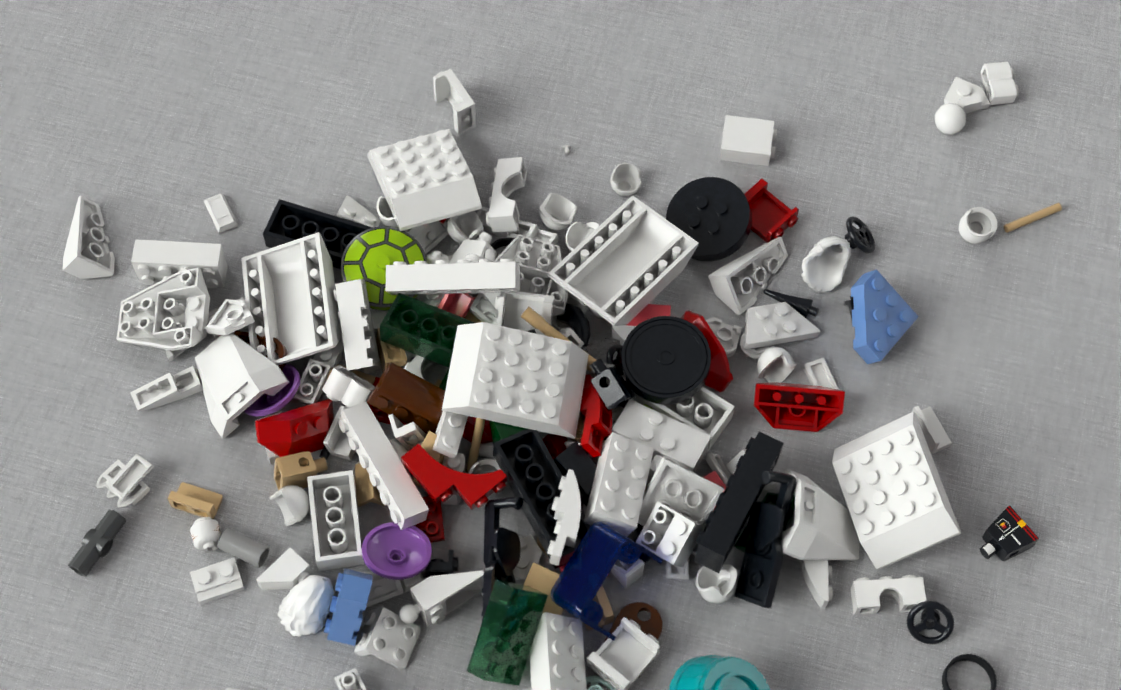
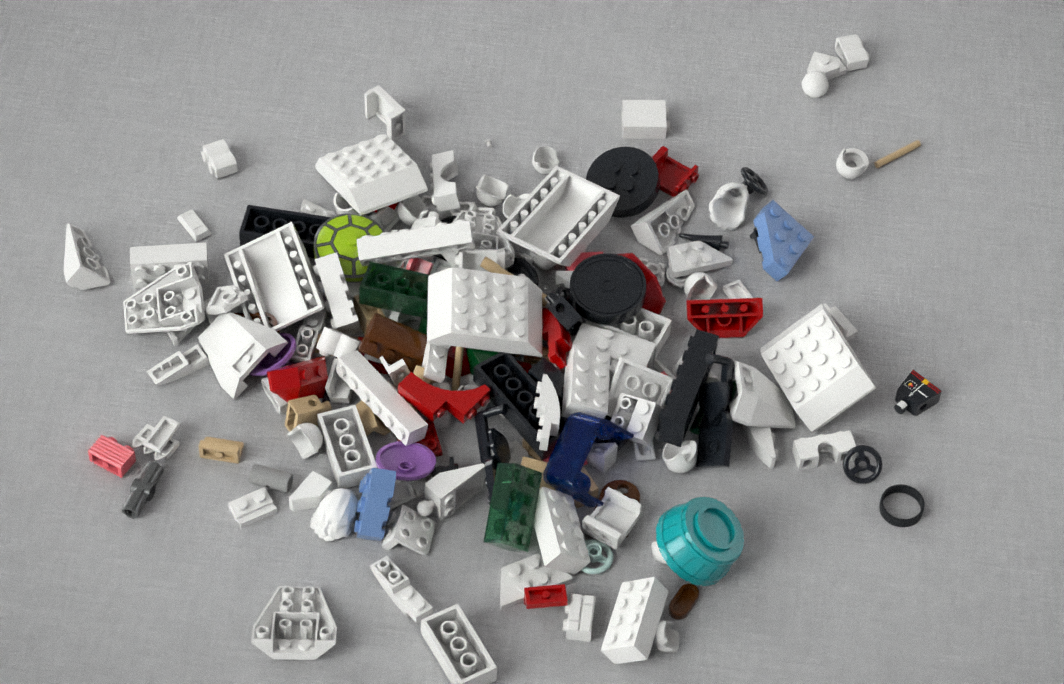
camera: 10 degrees left, 10 degrees down
(71, 494) = (112, 456): none -> coral brick
(205, 534) = (236, 472): white head -> none
(263, 134) = (219, 159): none -> white brick

